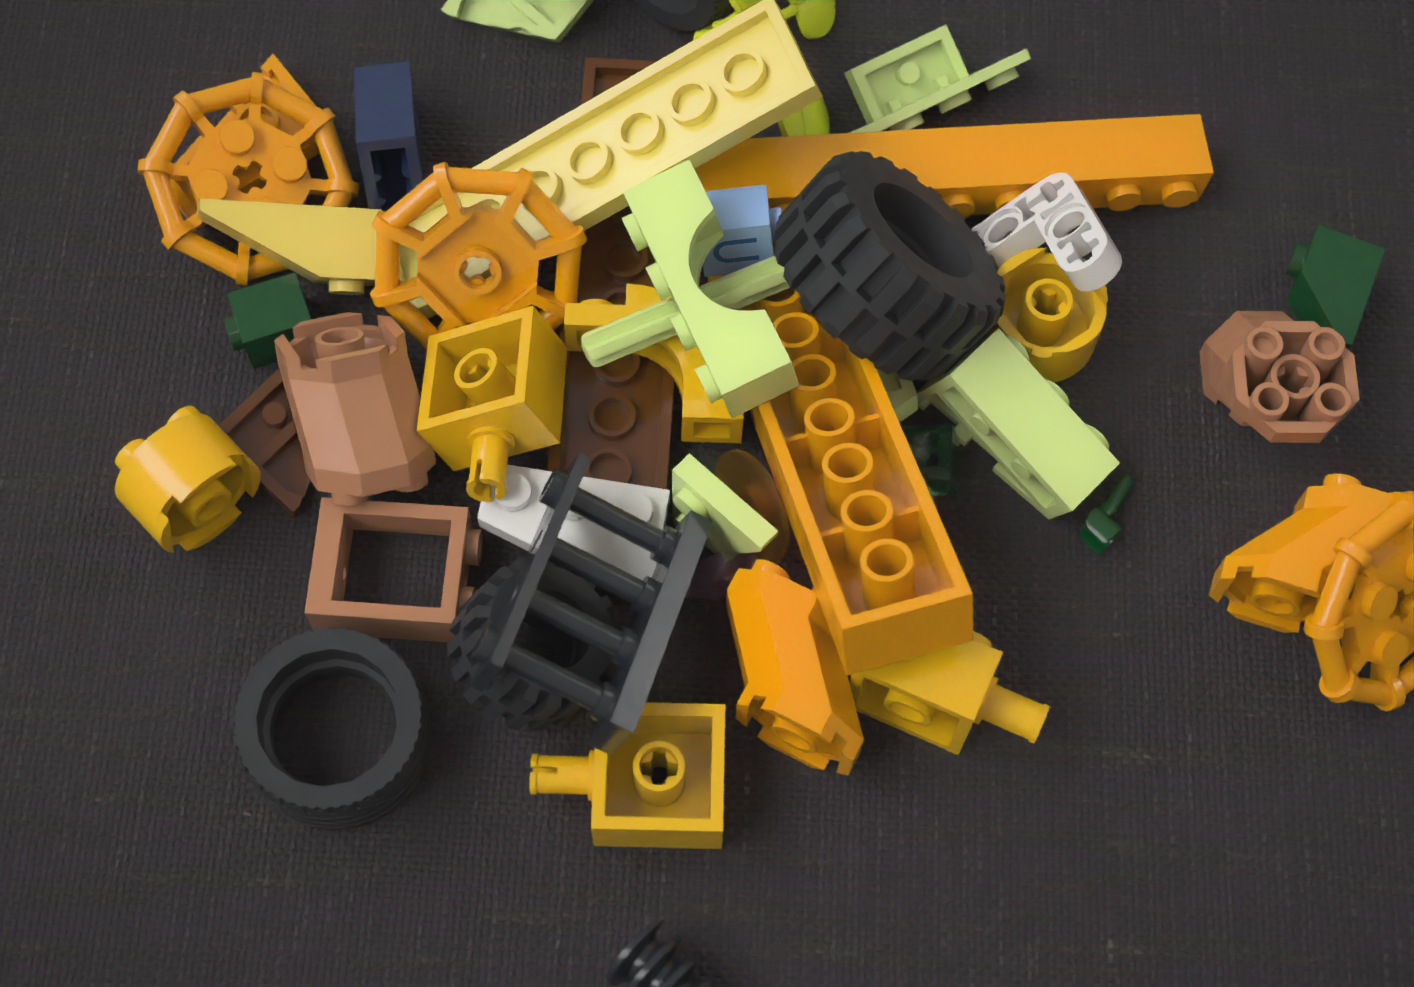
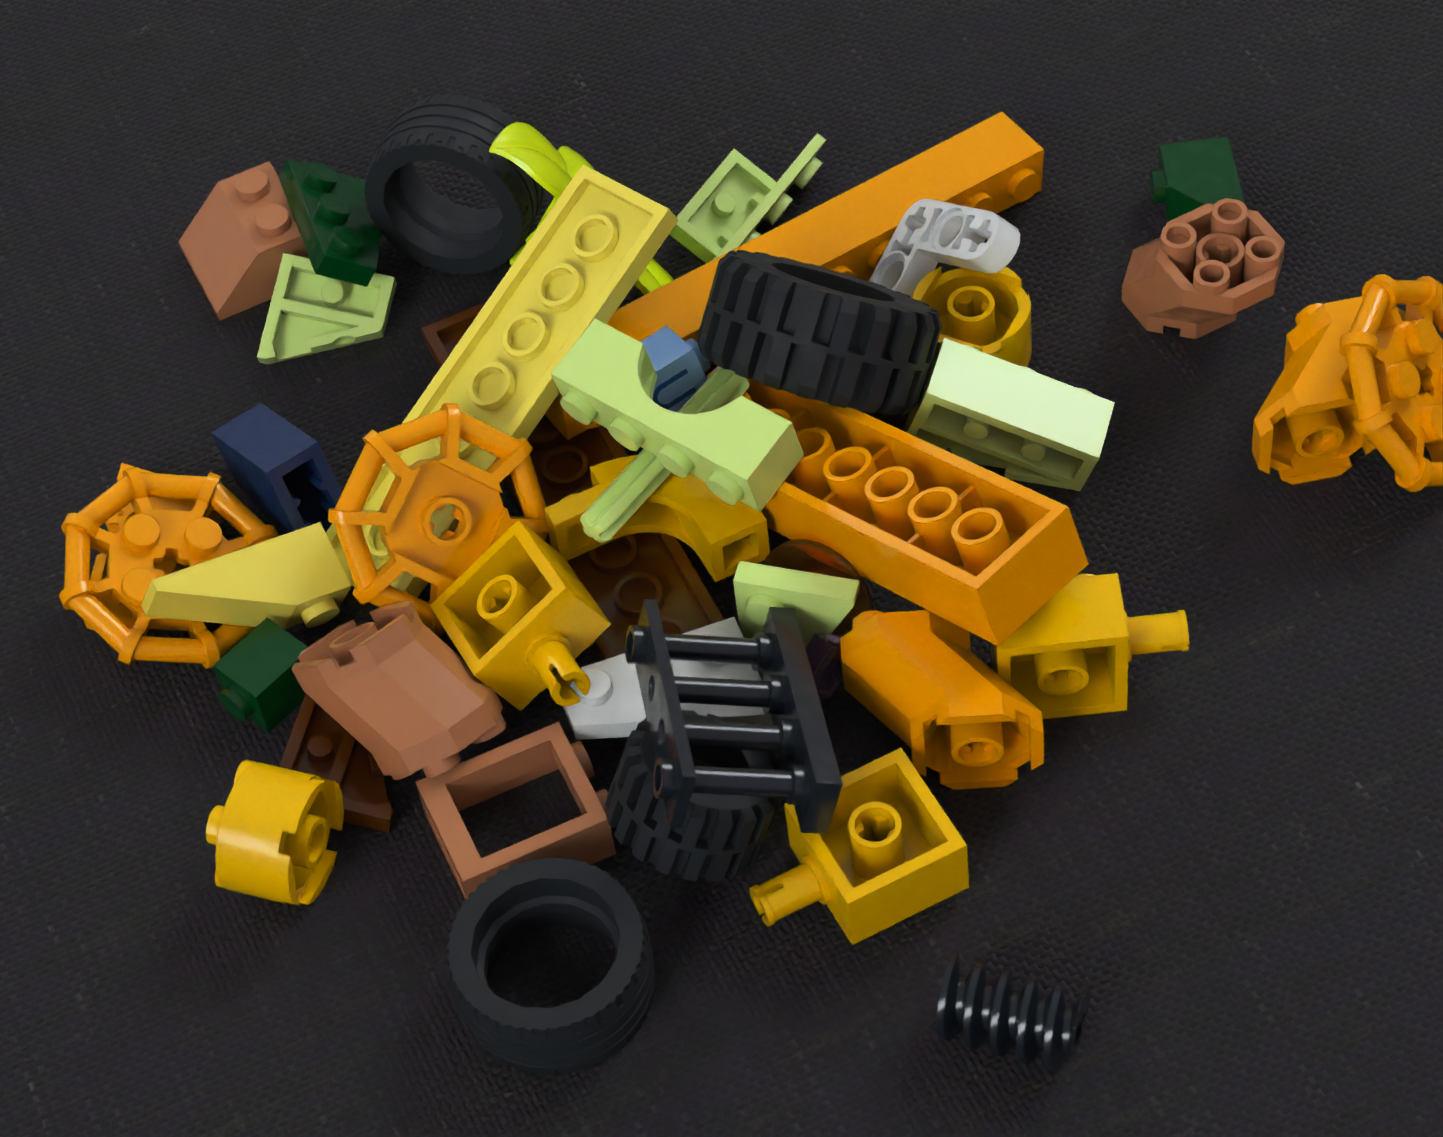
camera: 20 degrees left, 15 degrees down
(1099, 529) = (1130, 470): dark green hand -> none

